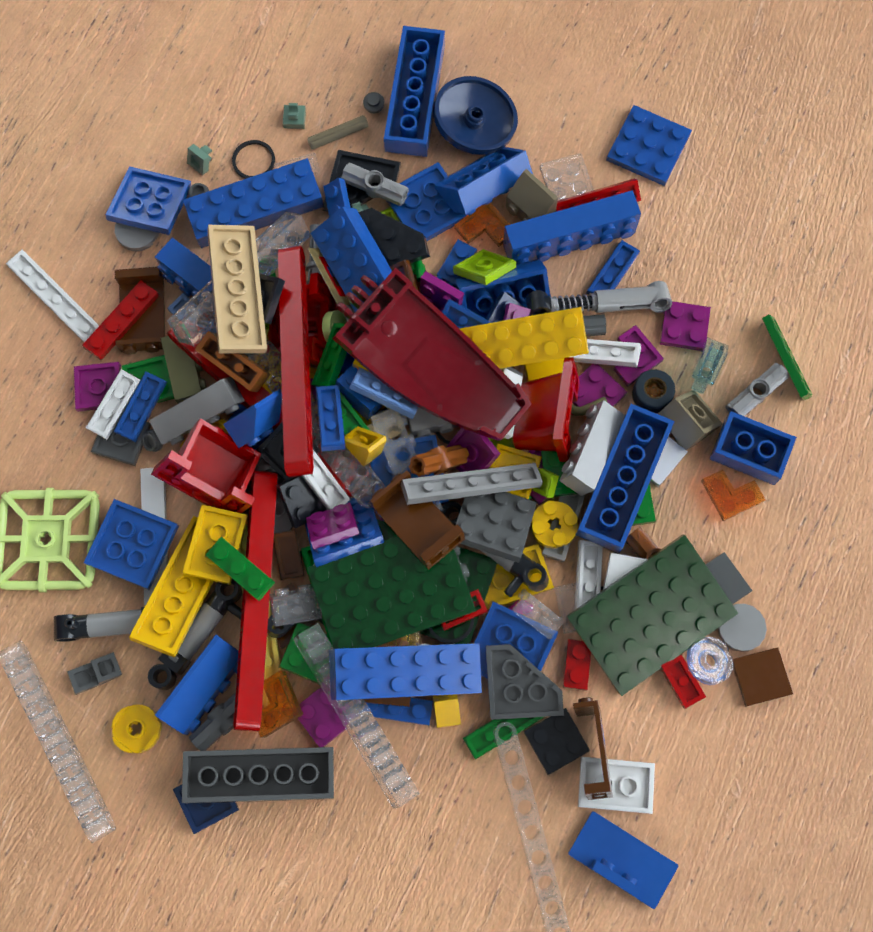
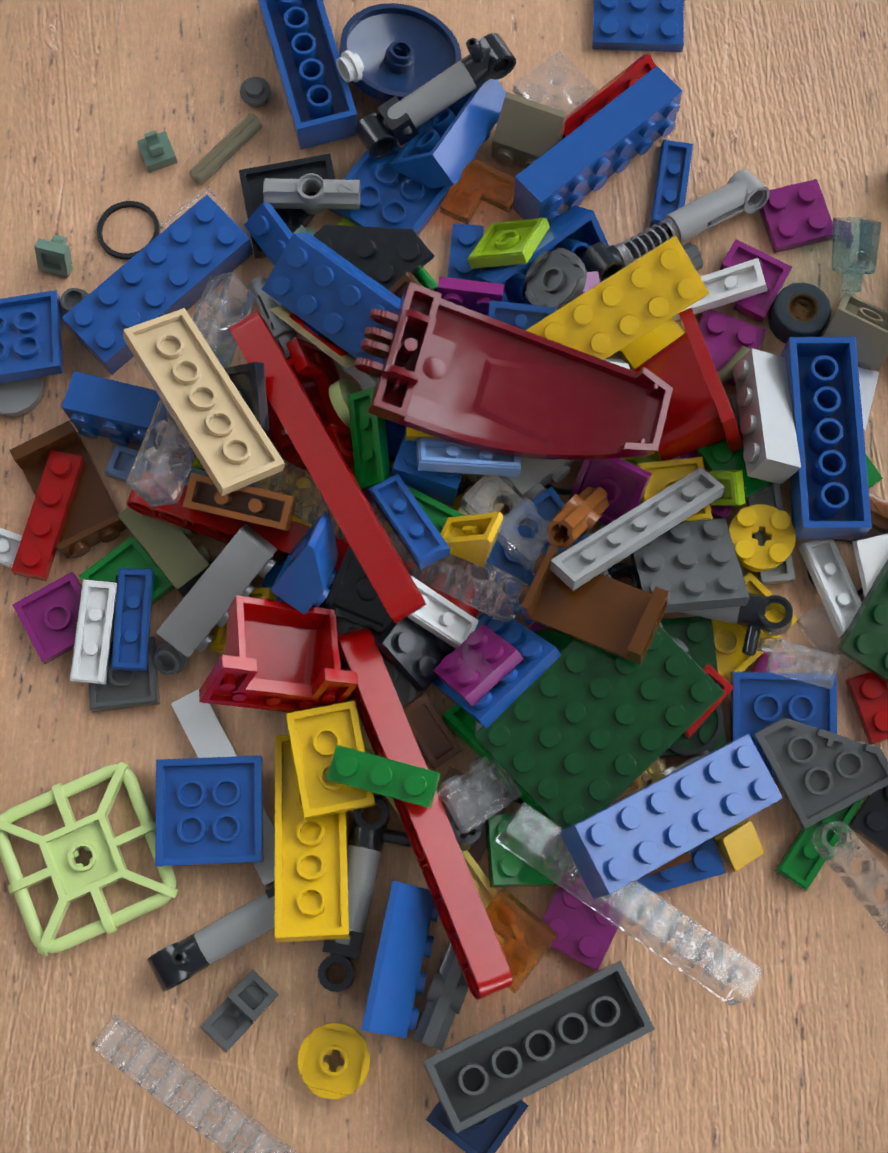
camera: 25 degrees left, 0 degrees up
(435, 111) = (350, 66): none -> white plate
(453, 158) = (399, 119): none -> black piece
(499, 302) = (555, 278): none -> dark grey tile

